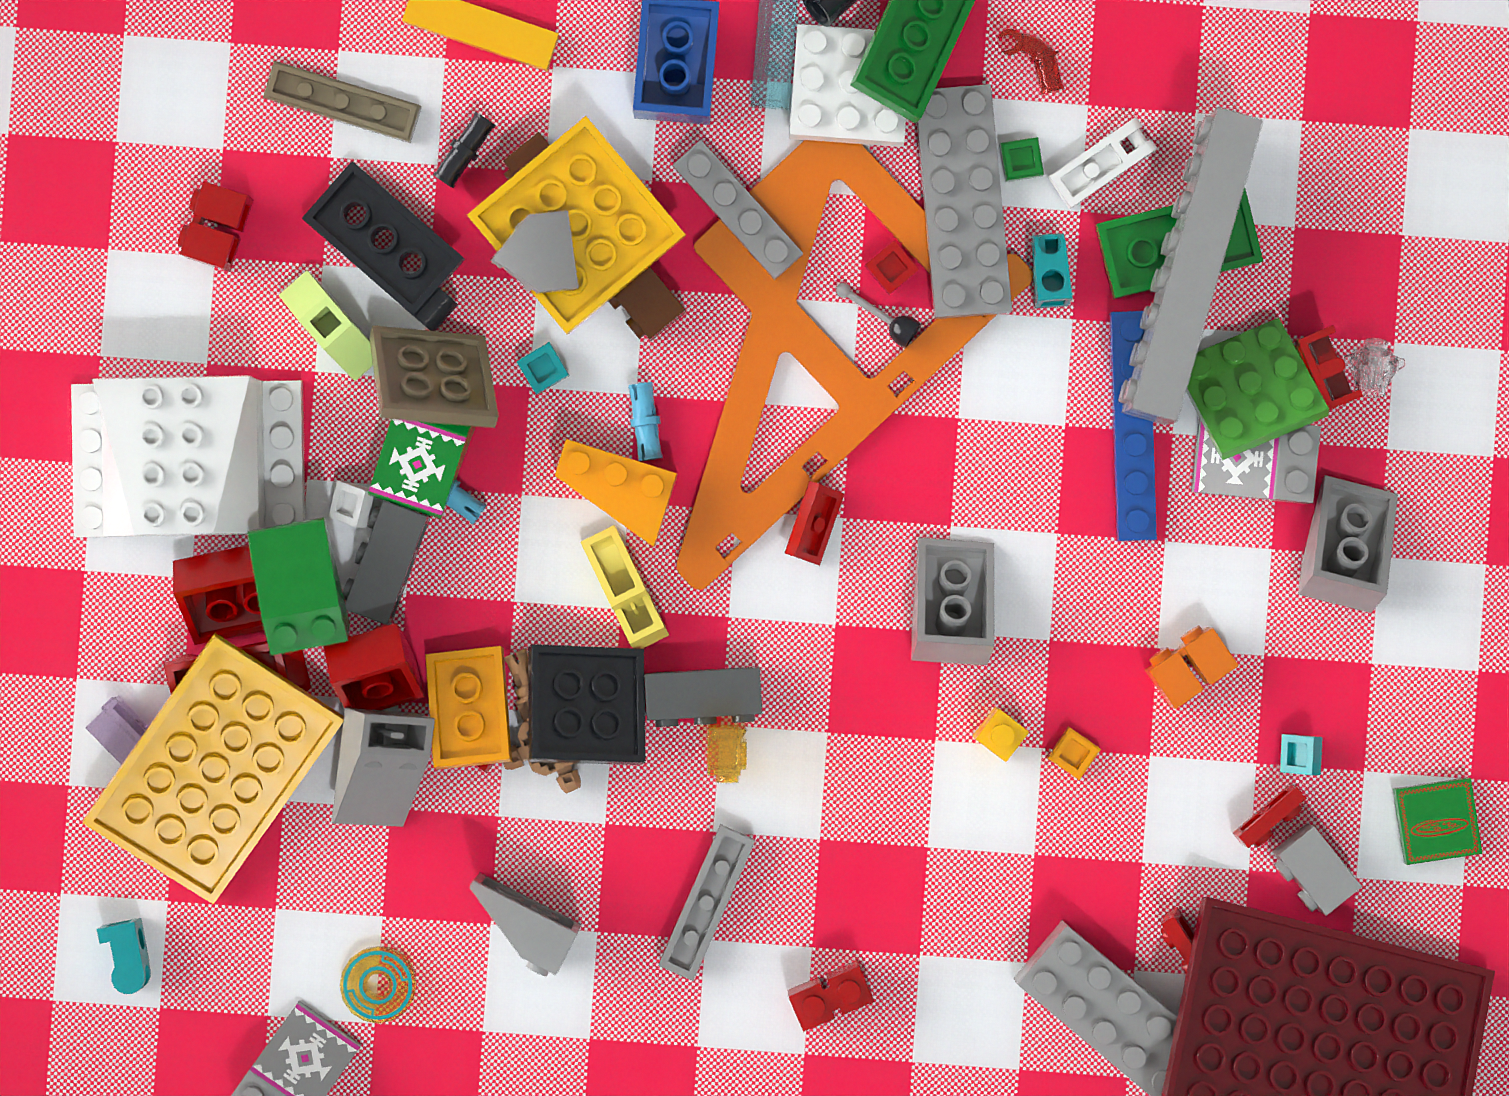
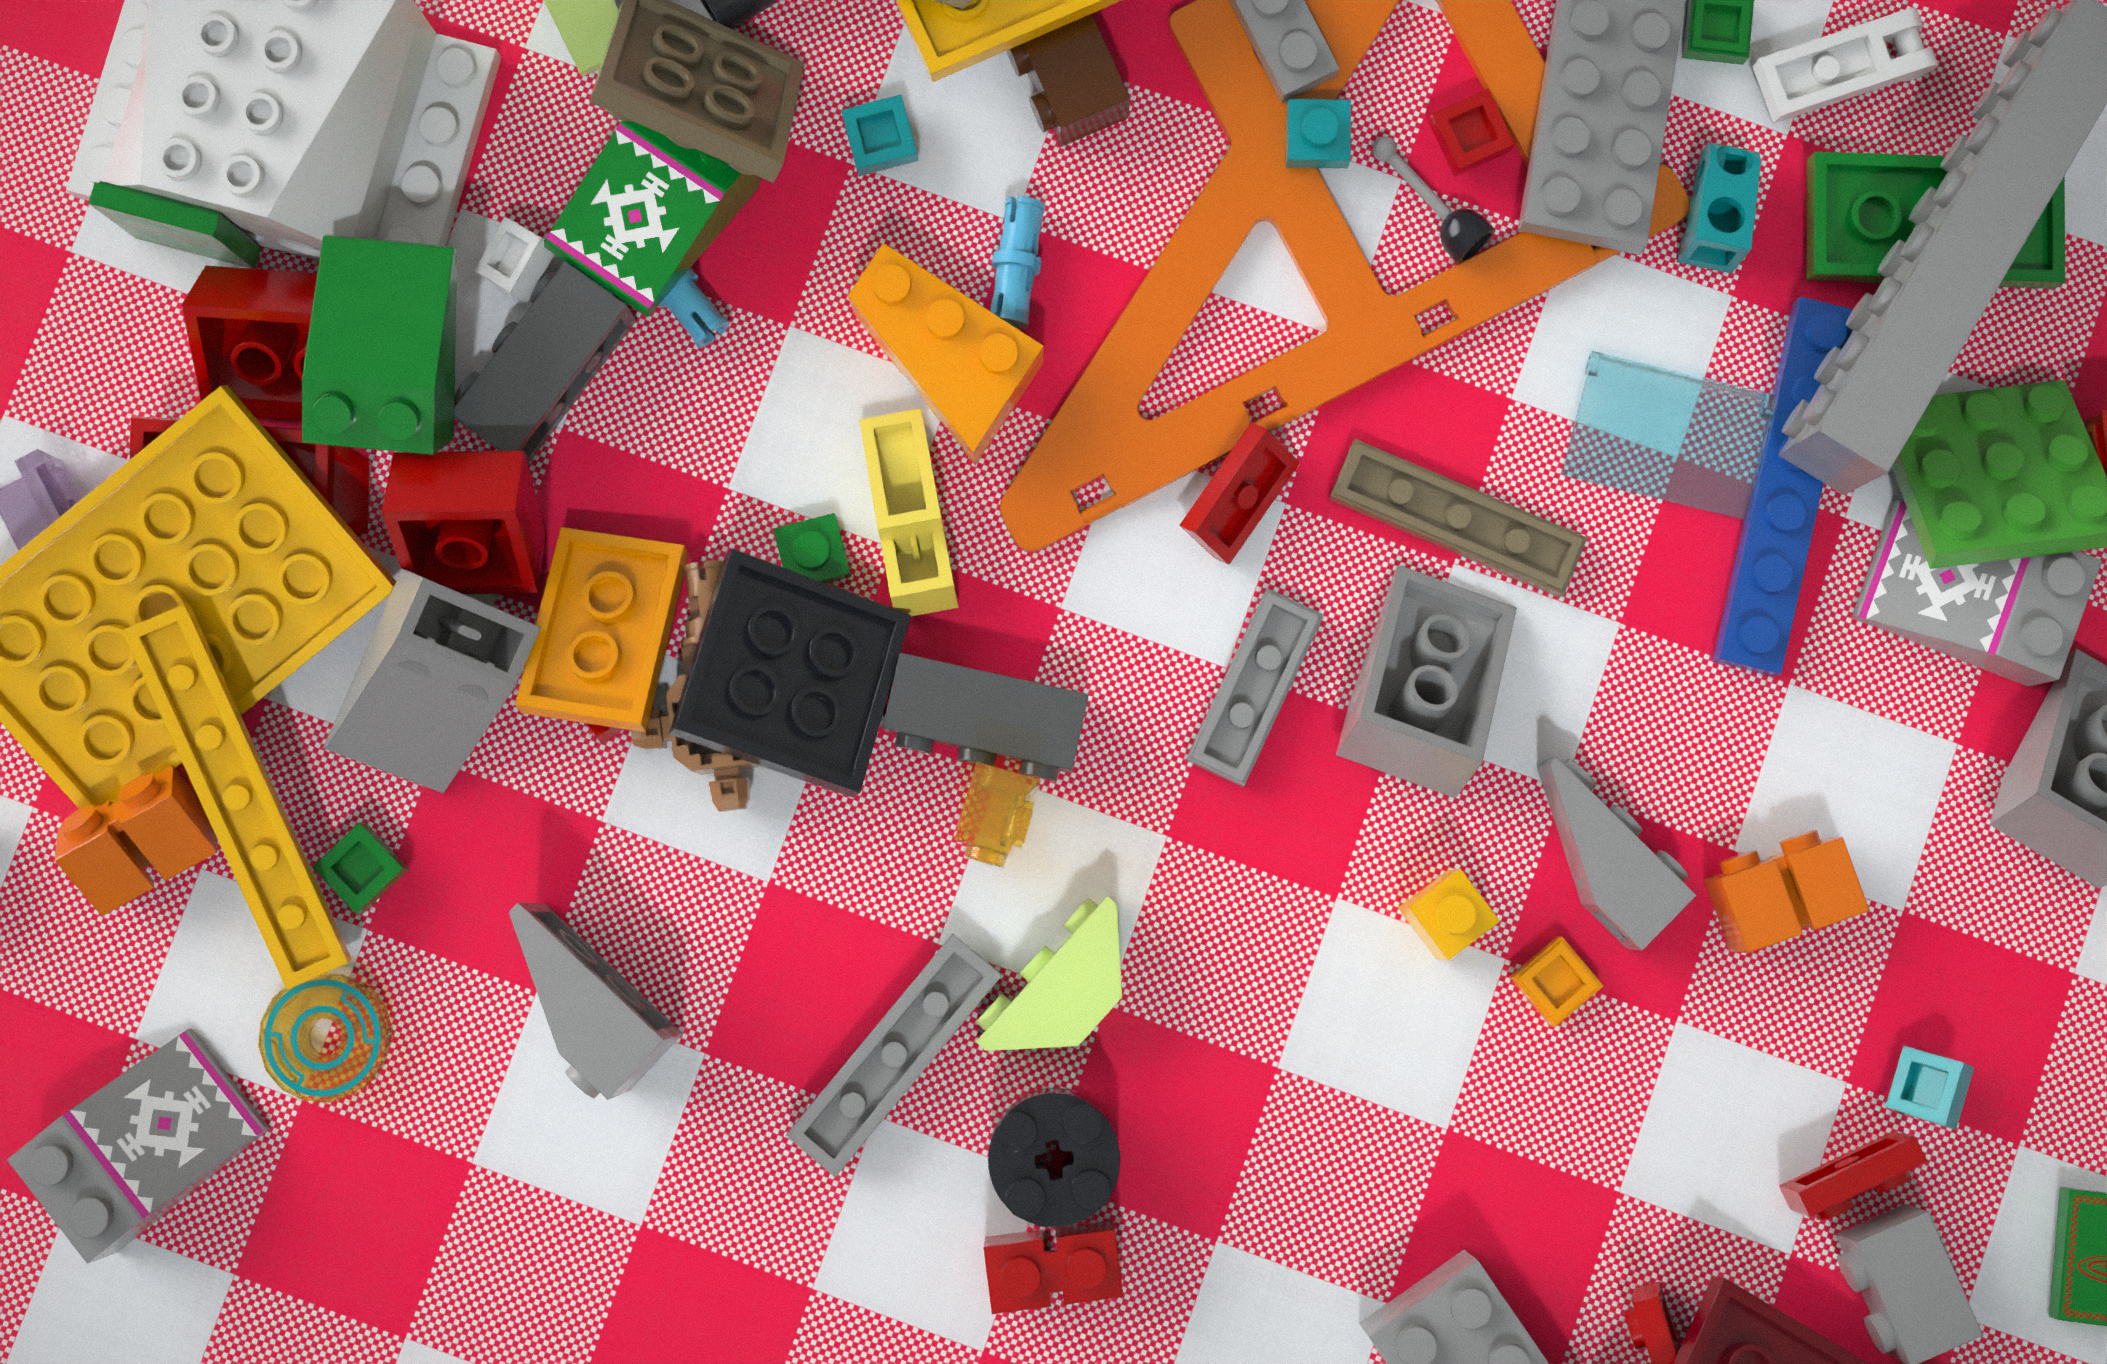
camera: 10 degrees right, 5 degrees down
(150, 543) = (175, 224): none -> green tile
(244, 891) = (152, 824): none -> orange piece
(291, 863) = (237, 795): none -> yellow plate
(370, 883) = (360, 868): none -> green plate
(575, 625) = (814, 548): none -> green plate
(793, 838) = (1064, 990): none -> yellowish green slope
(801, 294) = (1318, 133): none -> teal plate
(803, 954) = (1028, 1185): none -> black brick
(854, 632) = (1254, 687): none -> light grey tile
(945, 499) = (1458, 518): none -> dark tan tile
(1056, 414) = (1669, 435): none -> clear light blue piece
(1090, 683) = (1611, 867): none -> light grey slope

